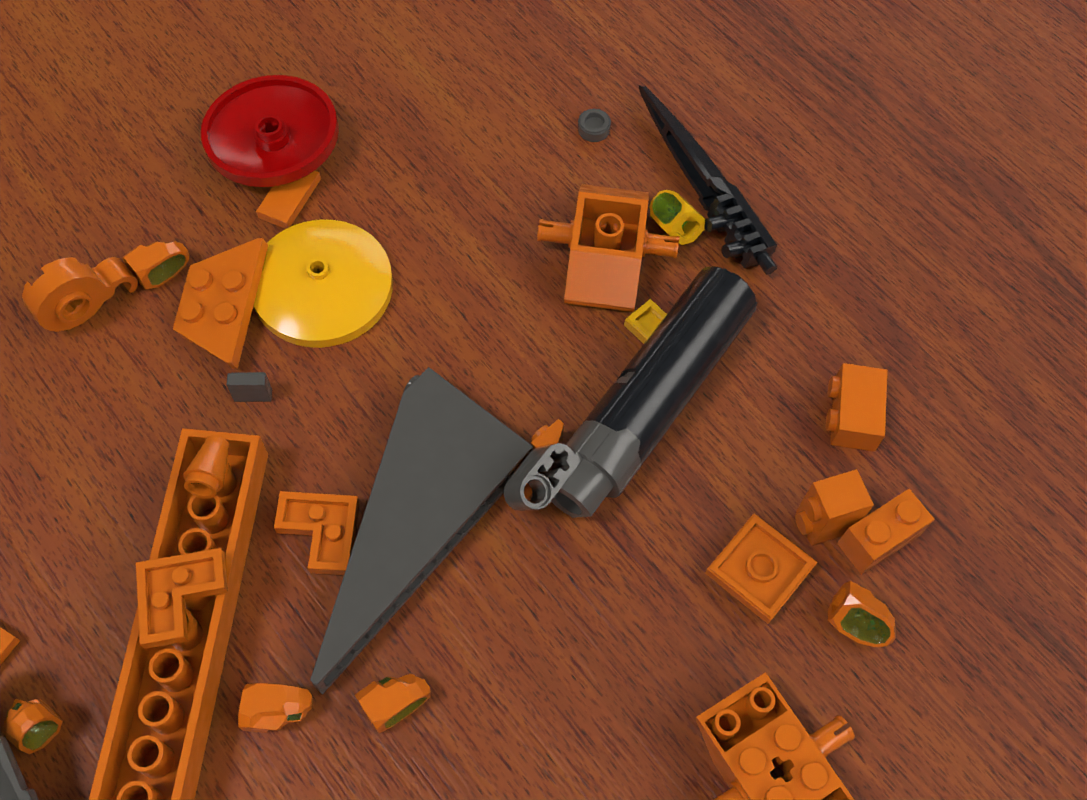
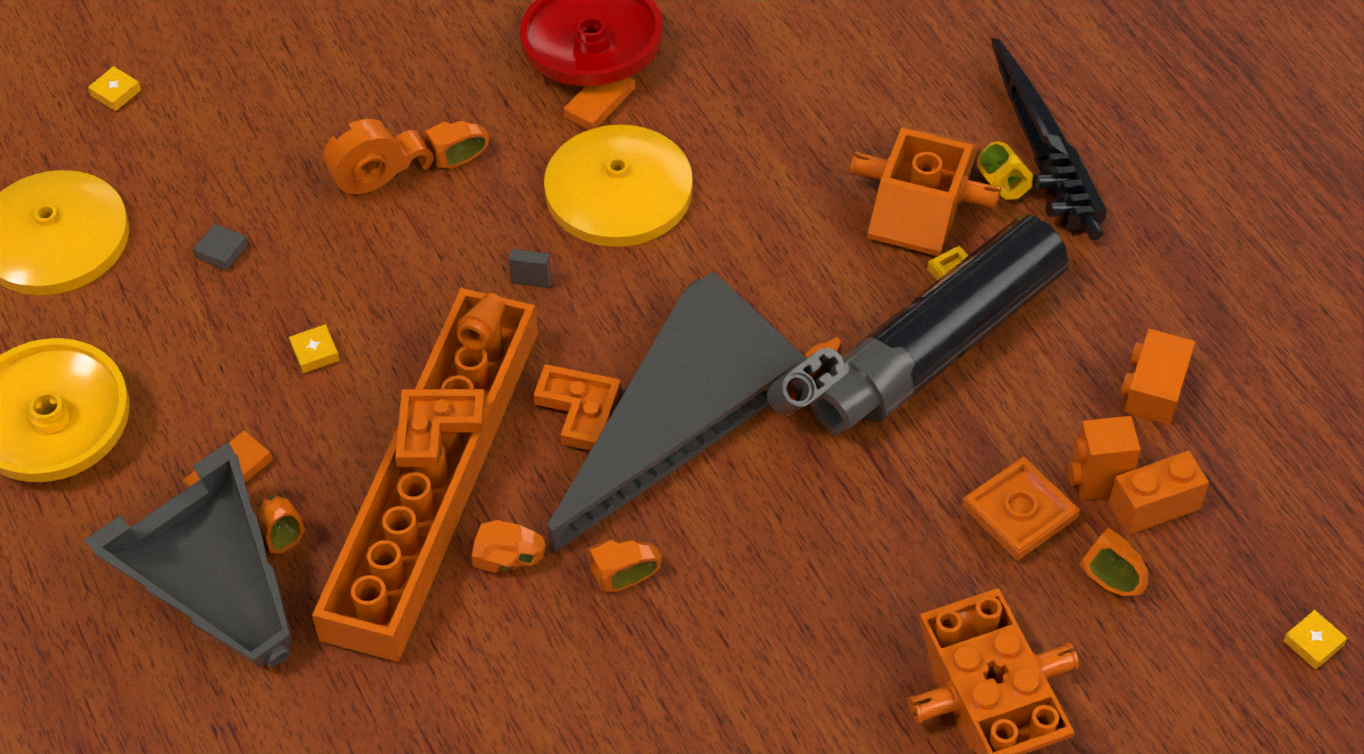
camera: 15 degrees right, 10 degrees down
(45, 508) = (314, 348): none -> yellow tile
(220, 300) = (514, 185): orange wing -> none
(594, 125) = (935, 72): dark grey tile -> none
(1055, 658) = (1315, 639): none -> yellow tile

